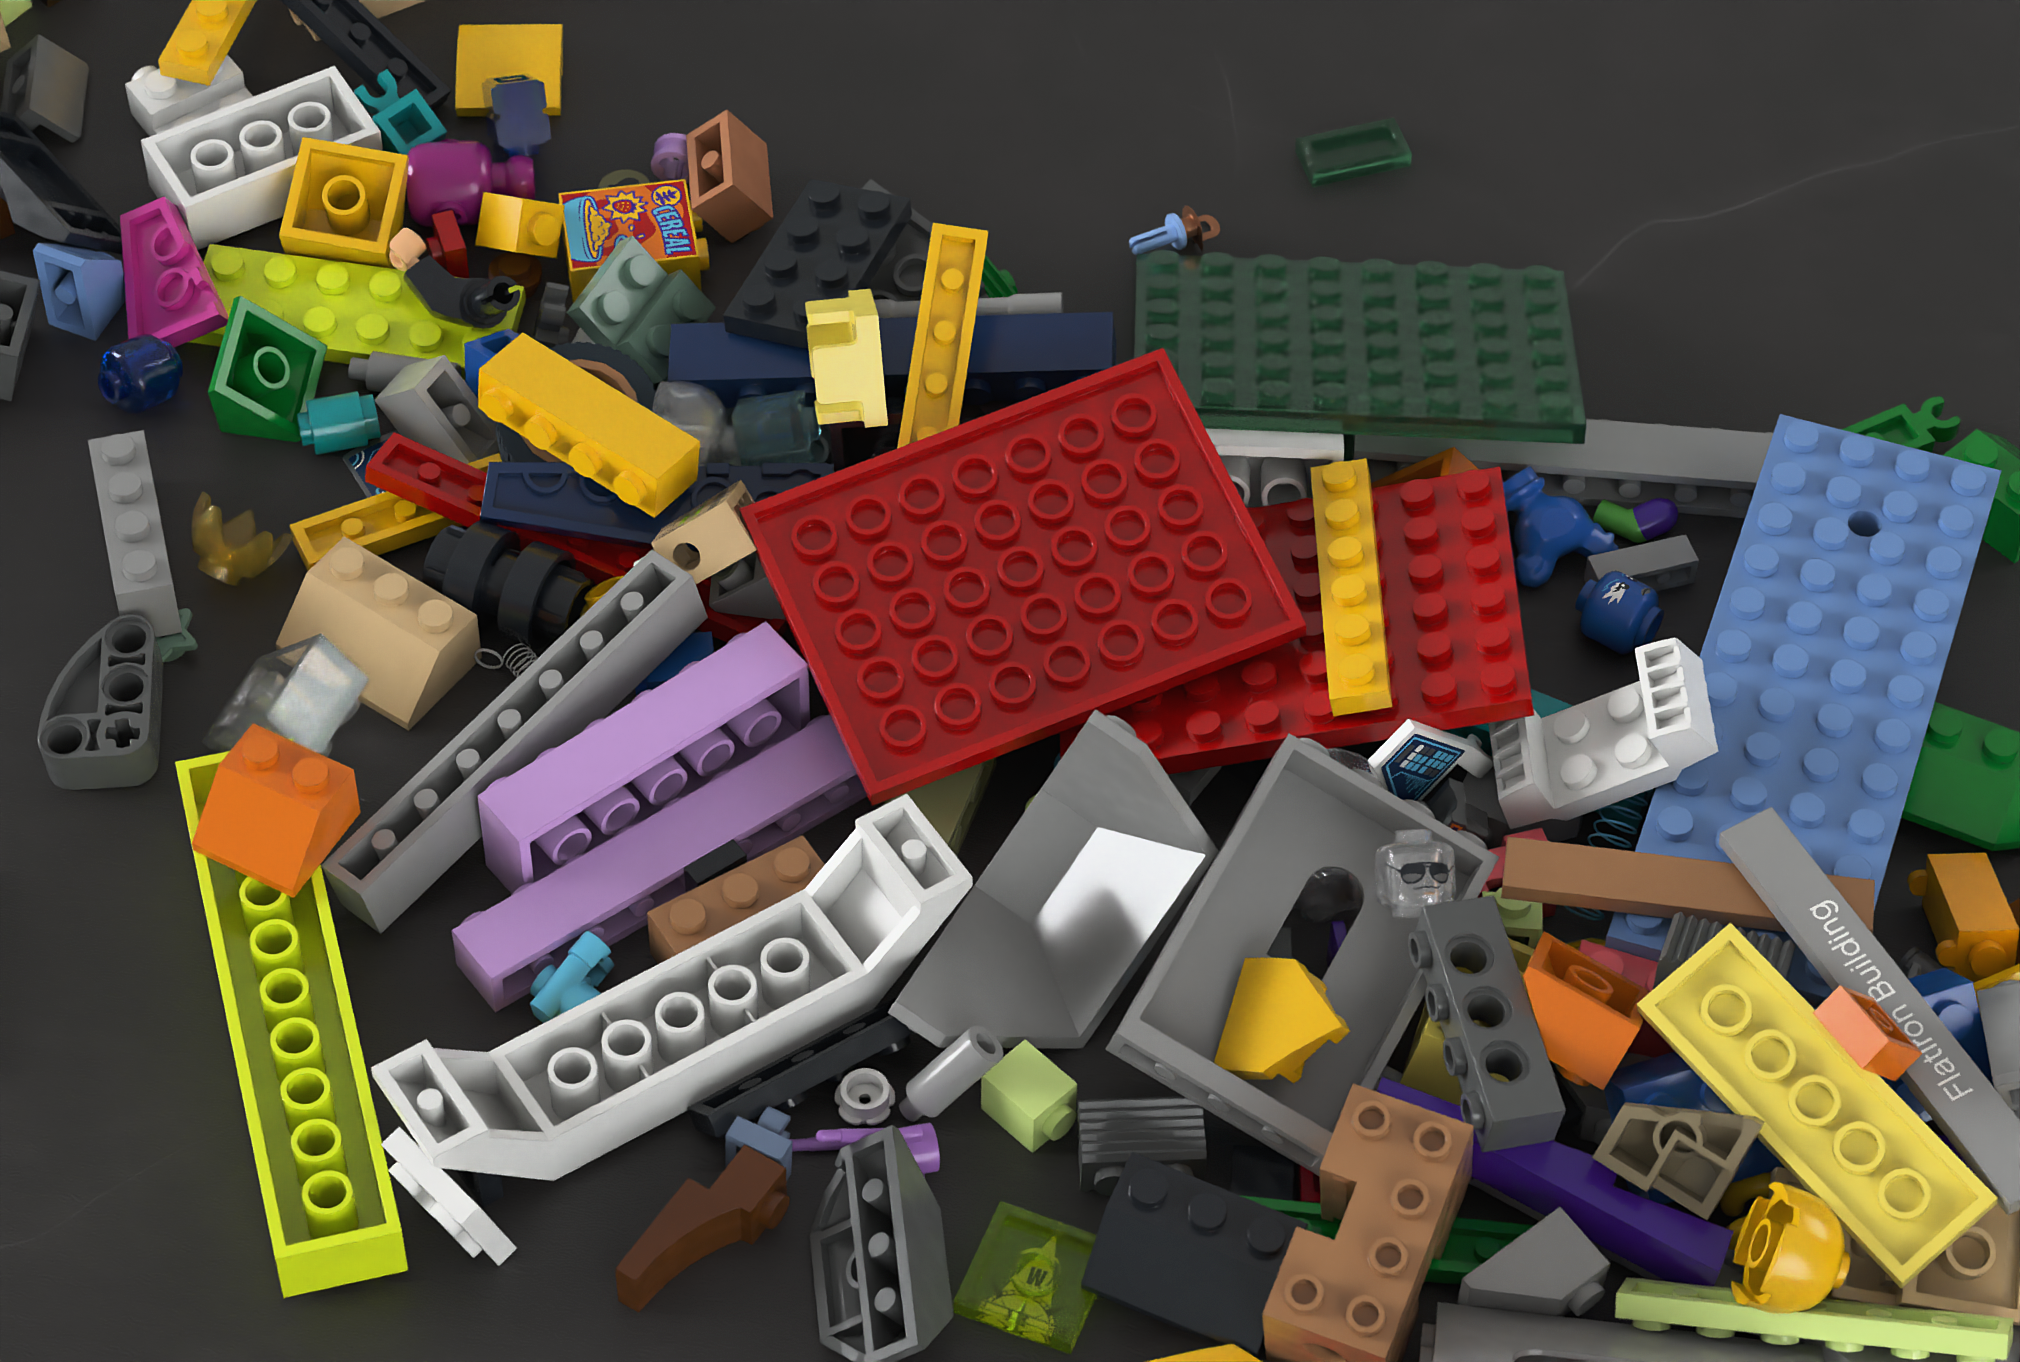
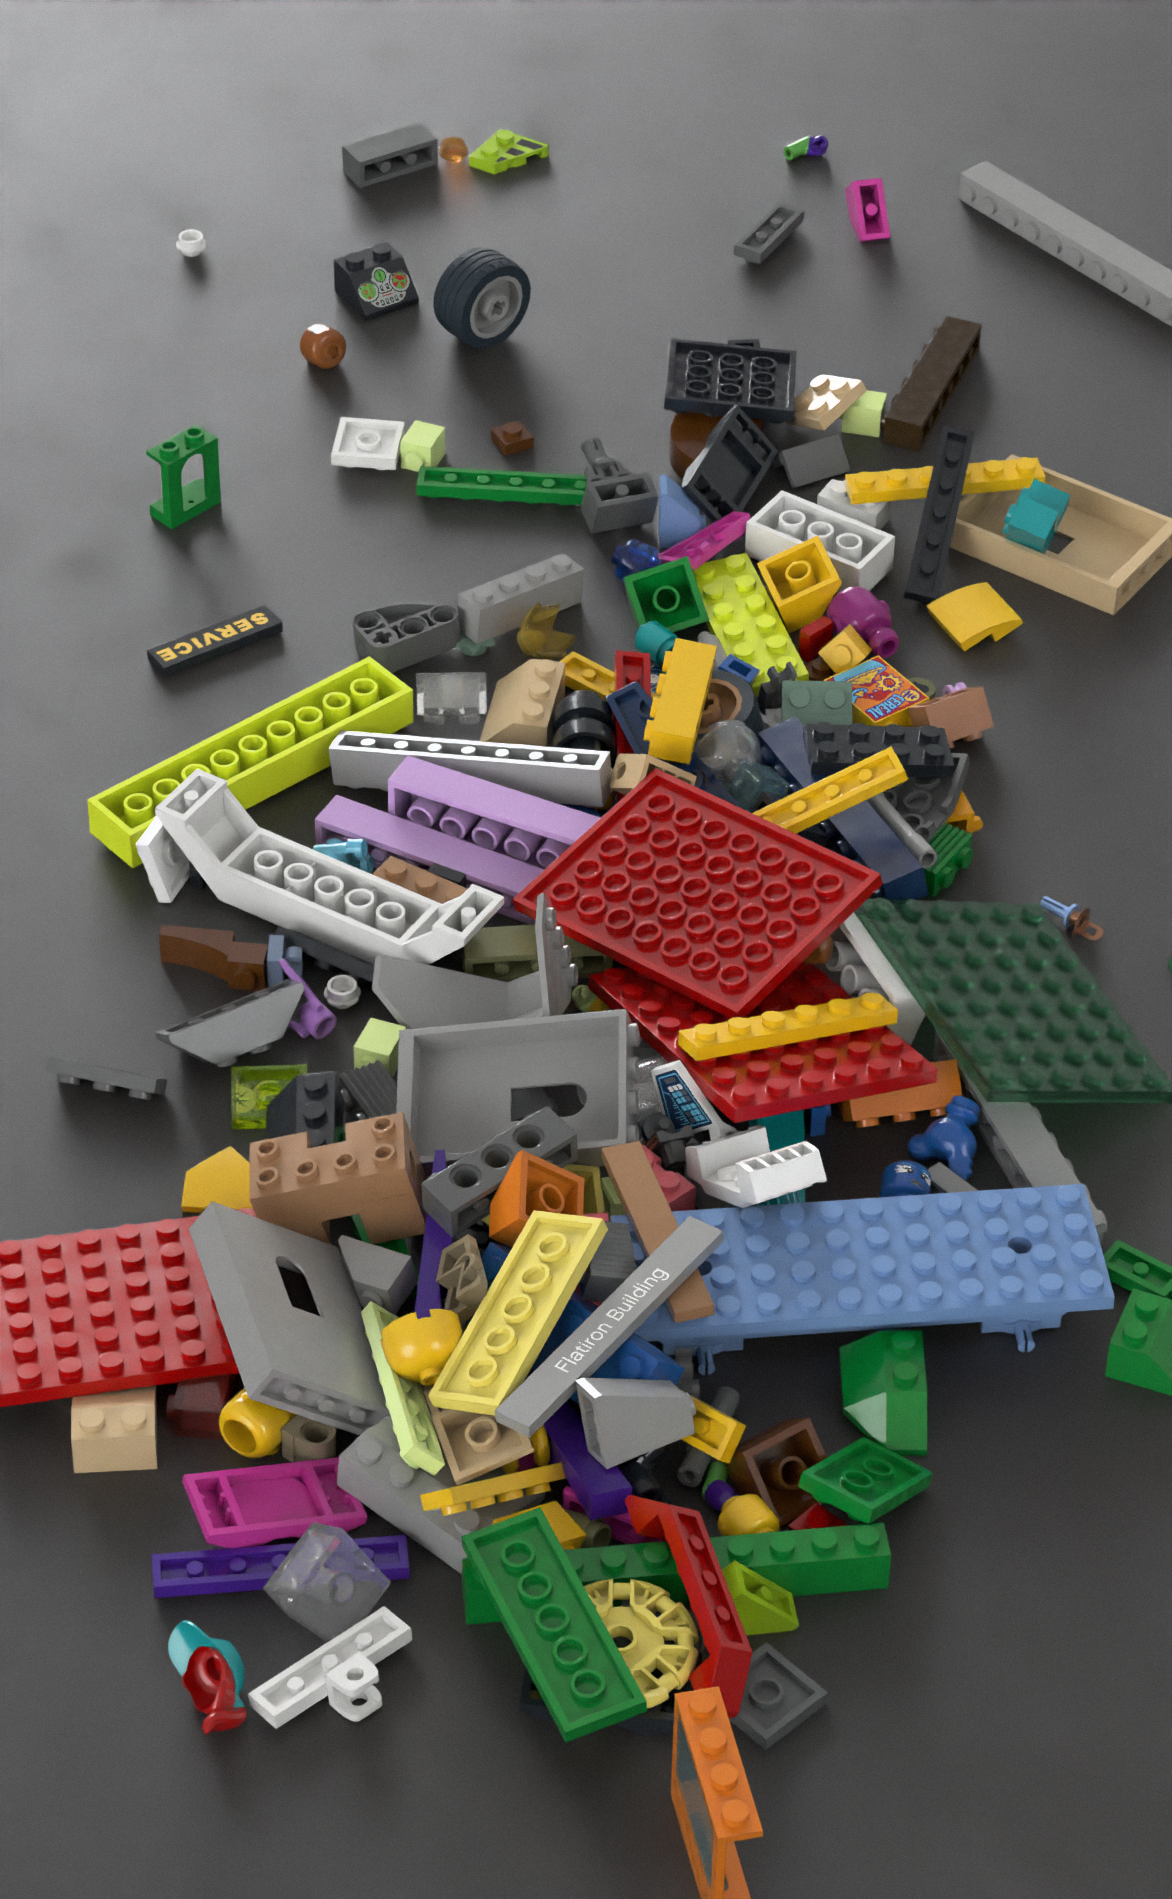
camera: 65 degrees right, 10 degrees down
(276, 810) = (352, 692): orange slope -> none
(402, 120) = (884, 578): teal brick -> none
(460, 301) = (765, 636): black arm -> none
(516, 113) = (923, 617): clear blue brick -> none
(847, 359) = (793, 766): light yellow panel -> none
(951, 1073) = (366, 1006): light grey cylinder -> none
(1276, 1020) = (460, 1102): yellow slope -> none
(1414, 873) = (577, 1101): clear head -> none
(1639, 522) = (991, 1176): arm -> none
(1867, 1033) = (566, 1304): orange piece -> none
(1967, 914) = (766, 1398): light orange brick -> none

